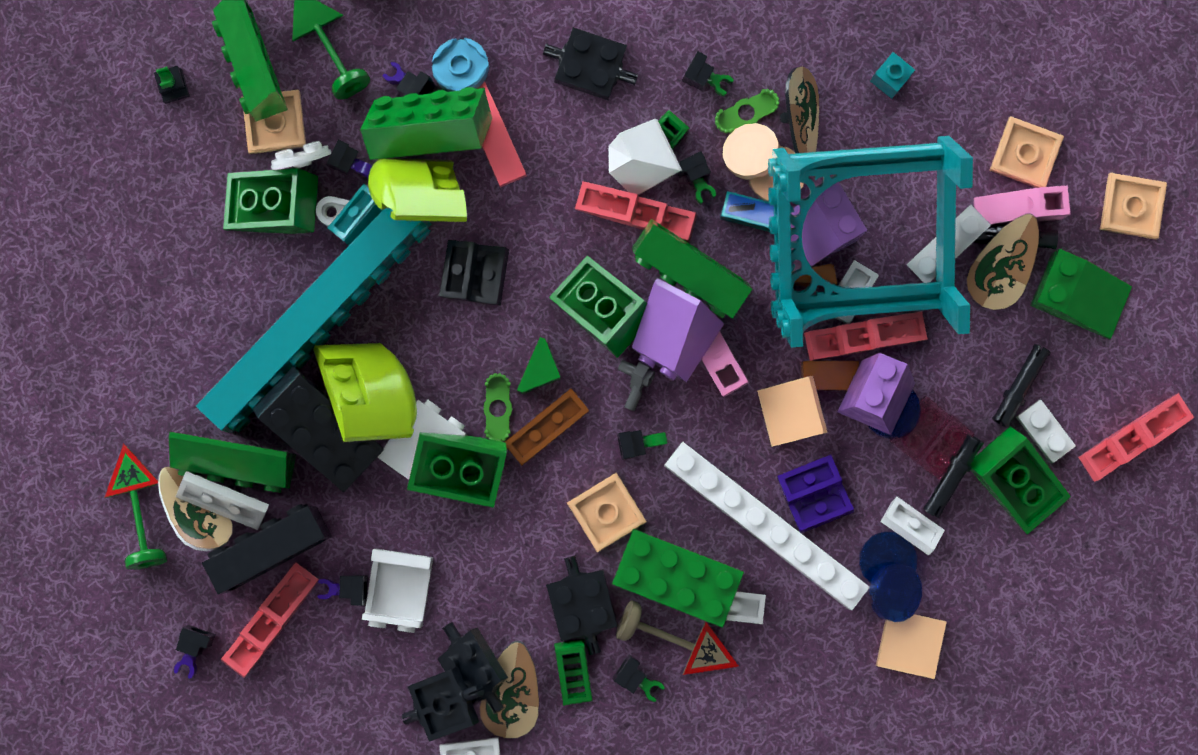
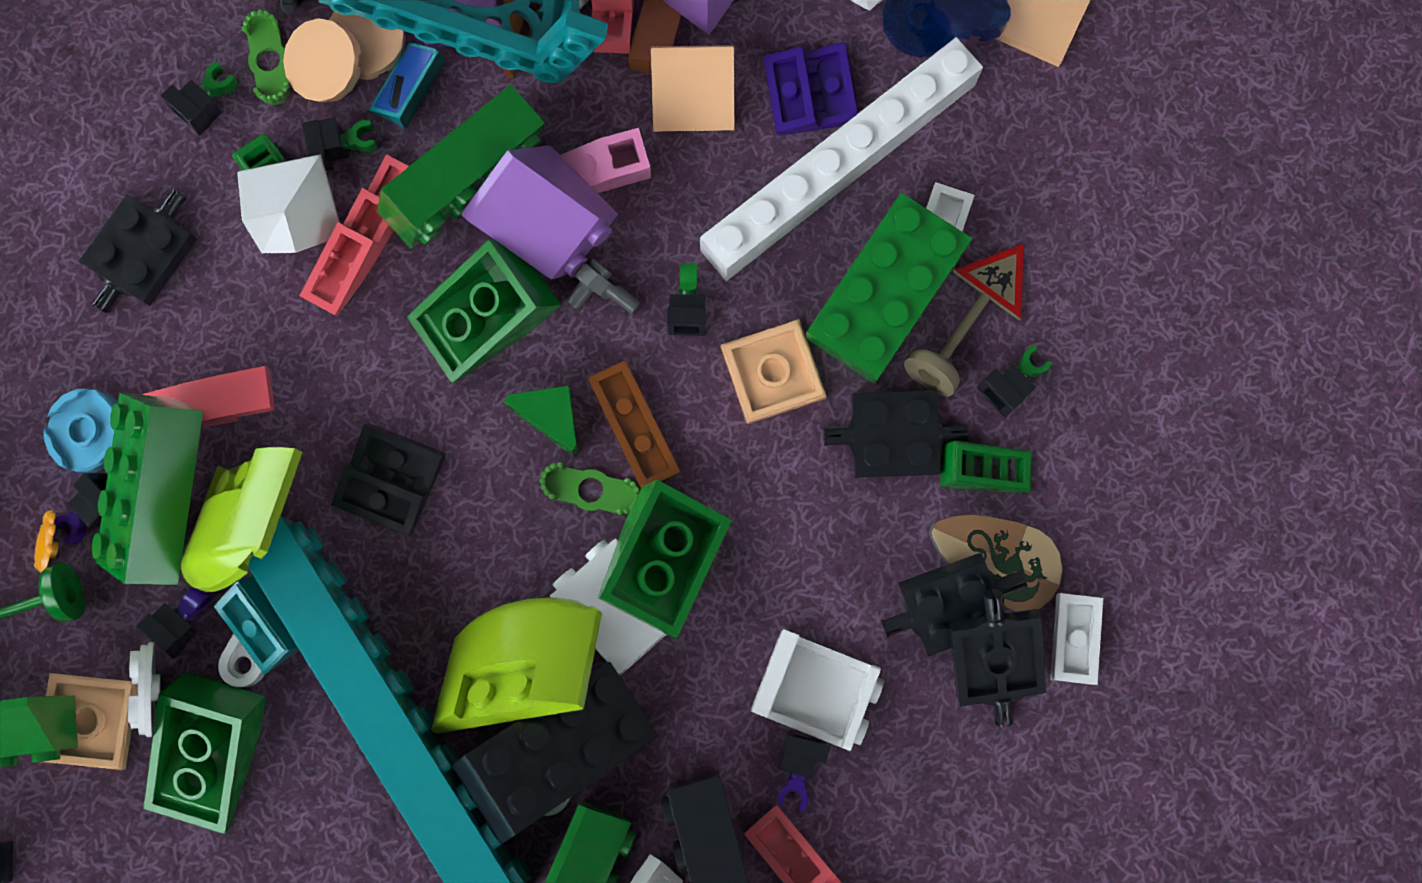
camera: 75 degrees left, 5 degrees down
(379, 63) = (45, 546): none -> light orange piece

